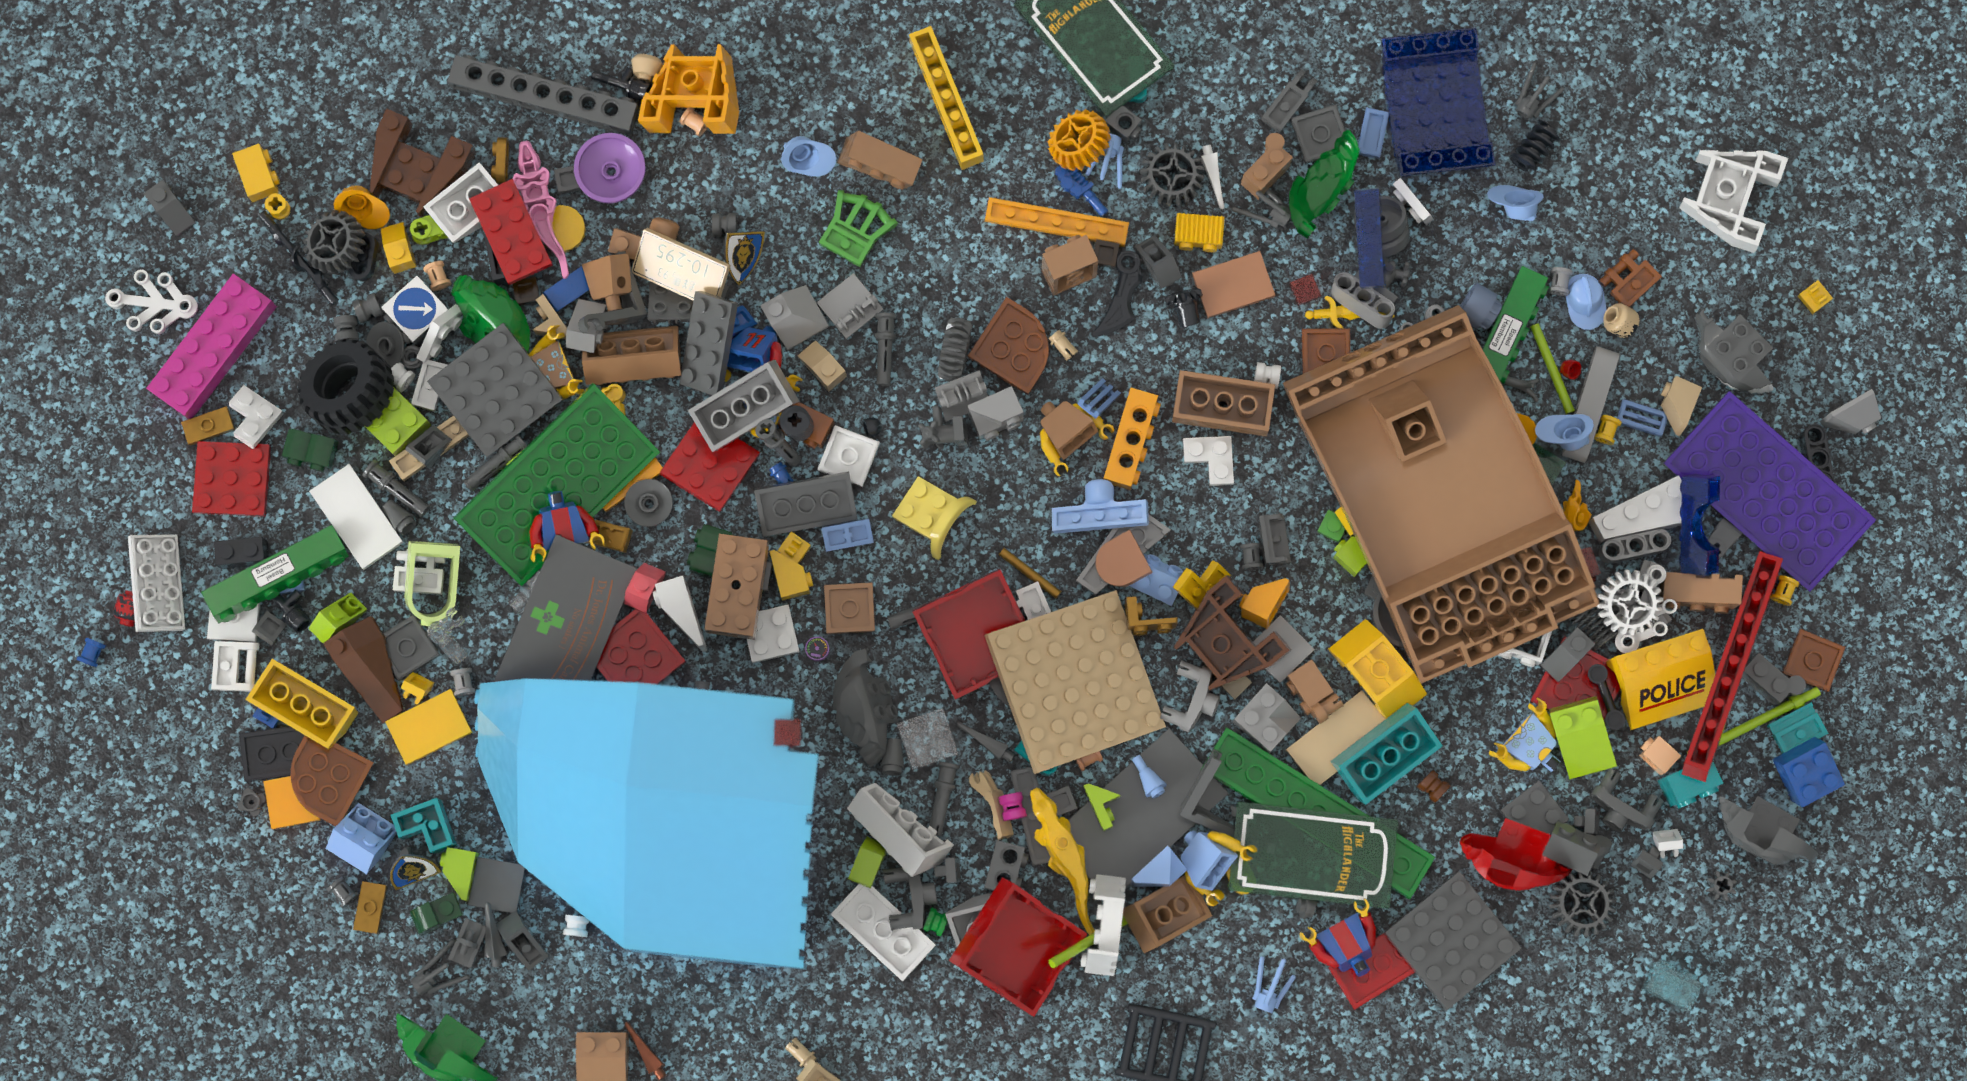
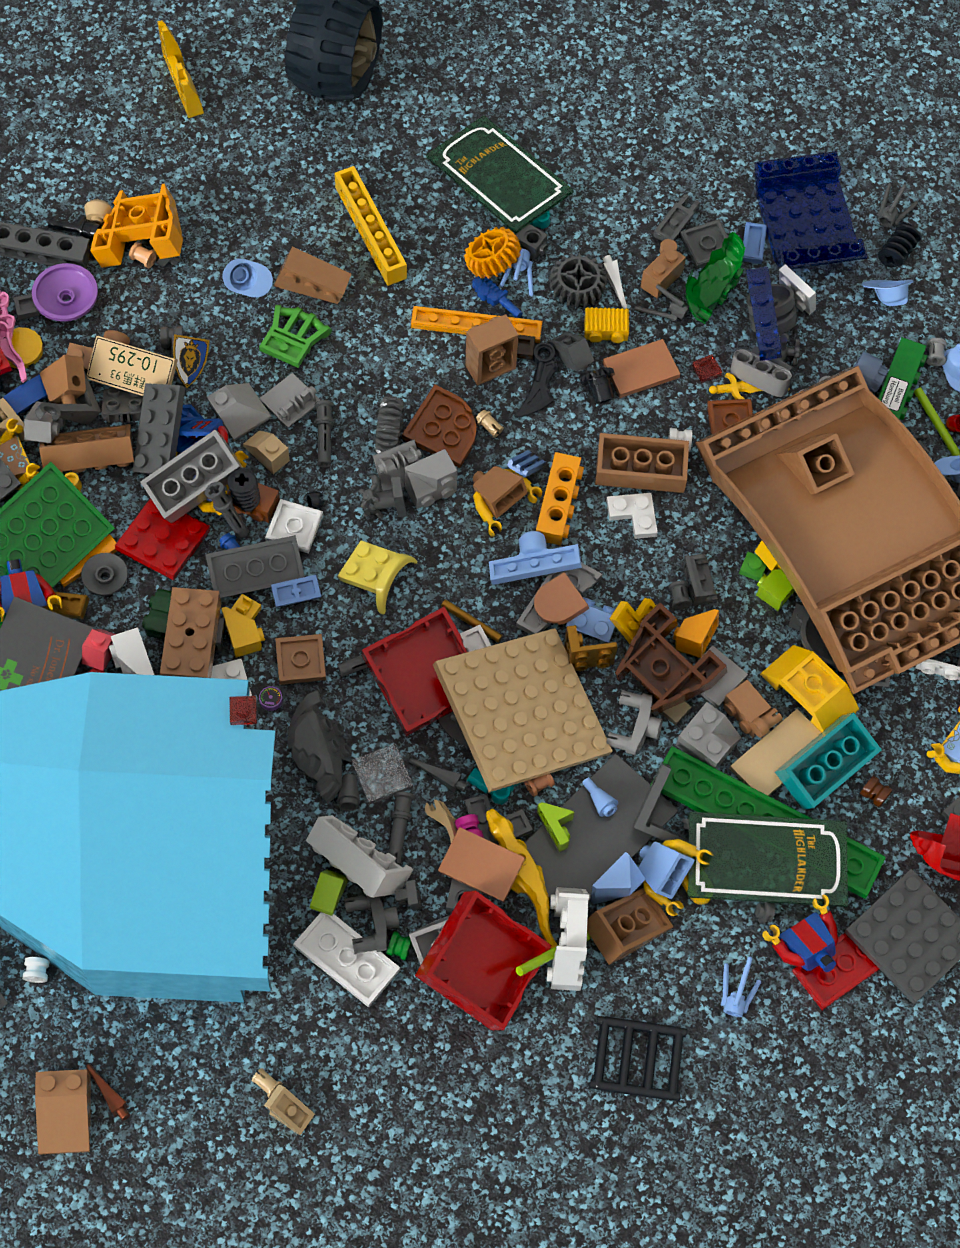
camera: 10 degrees left, 15 degrees down
(1022, 847) = (481, 864): none -> nougat tile

